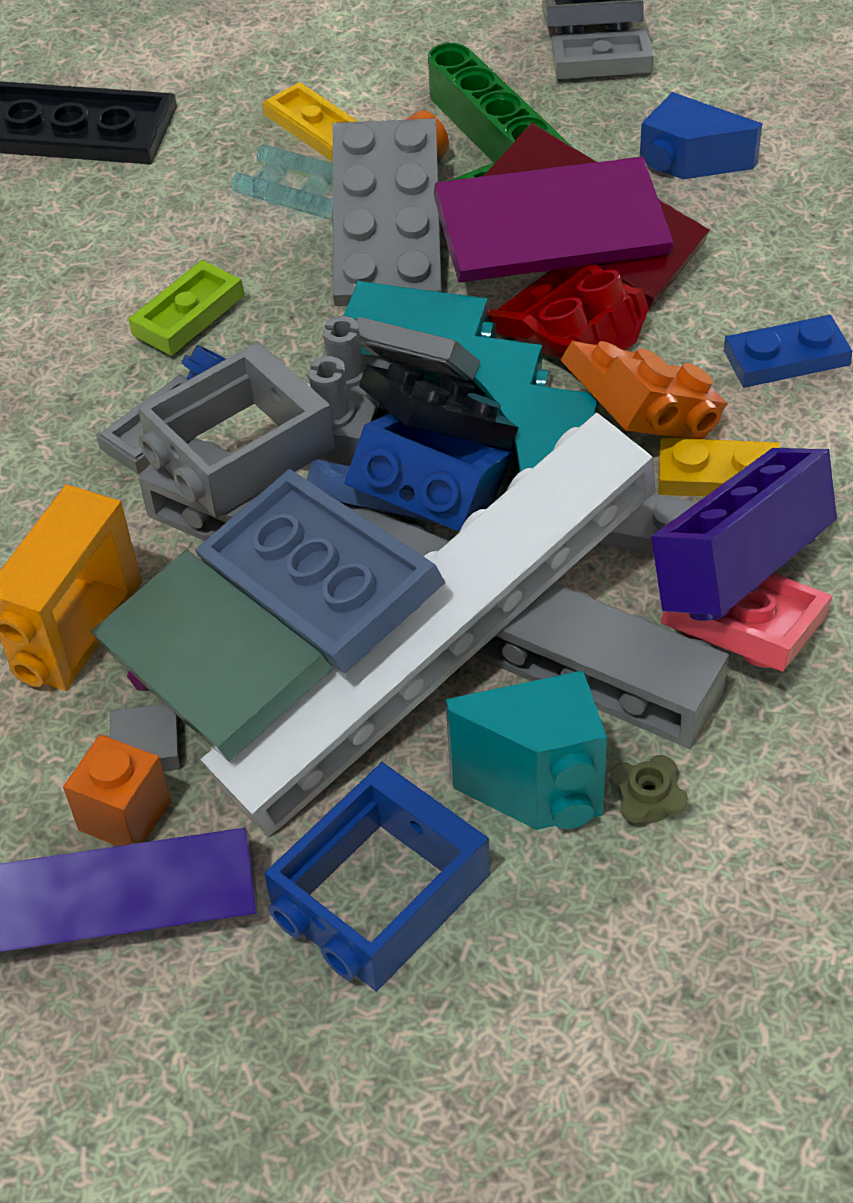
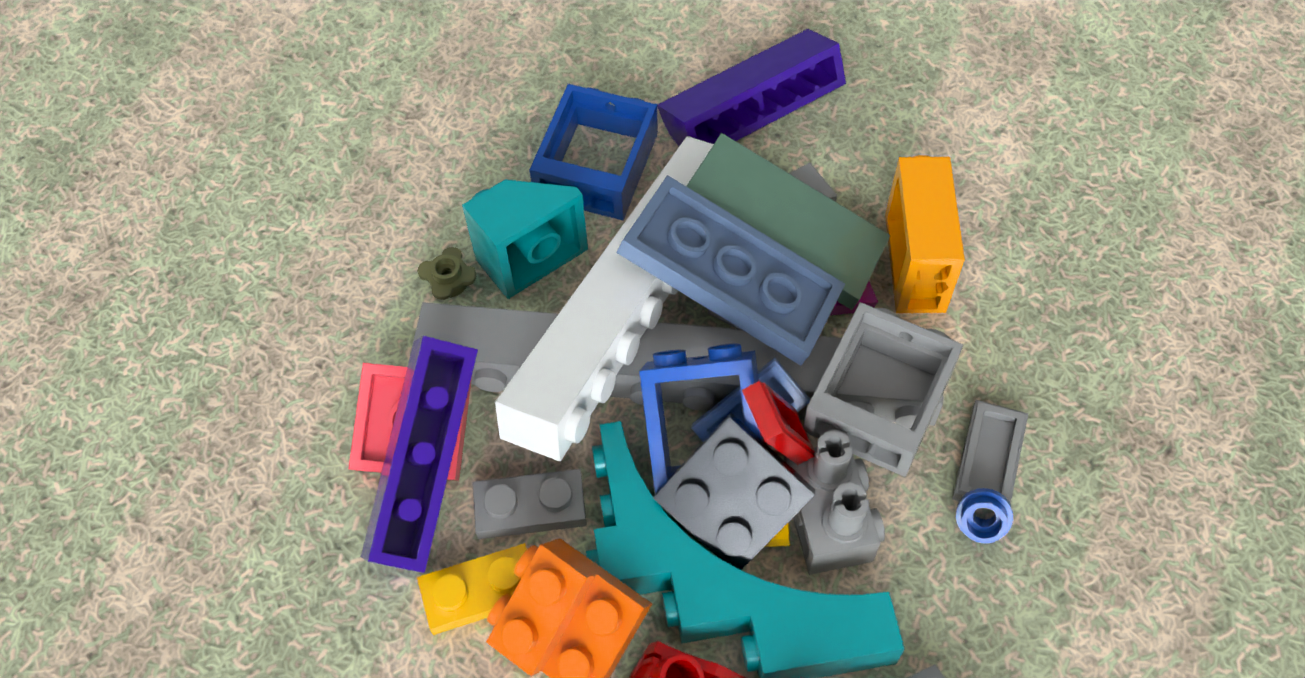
camera: 155 degrees right, 10 degrees up
(117, 792) = (787, 133): orange brick -> none
(186, 307) = (1064, 592): lime plate -> none
(366, 395) = (778, 423): none -> red tile
(417, 349) = (789, 553): light grey tile -> none

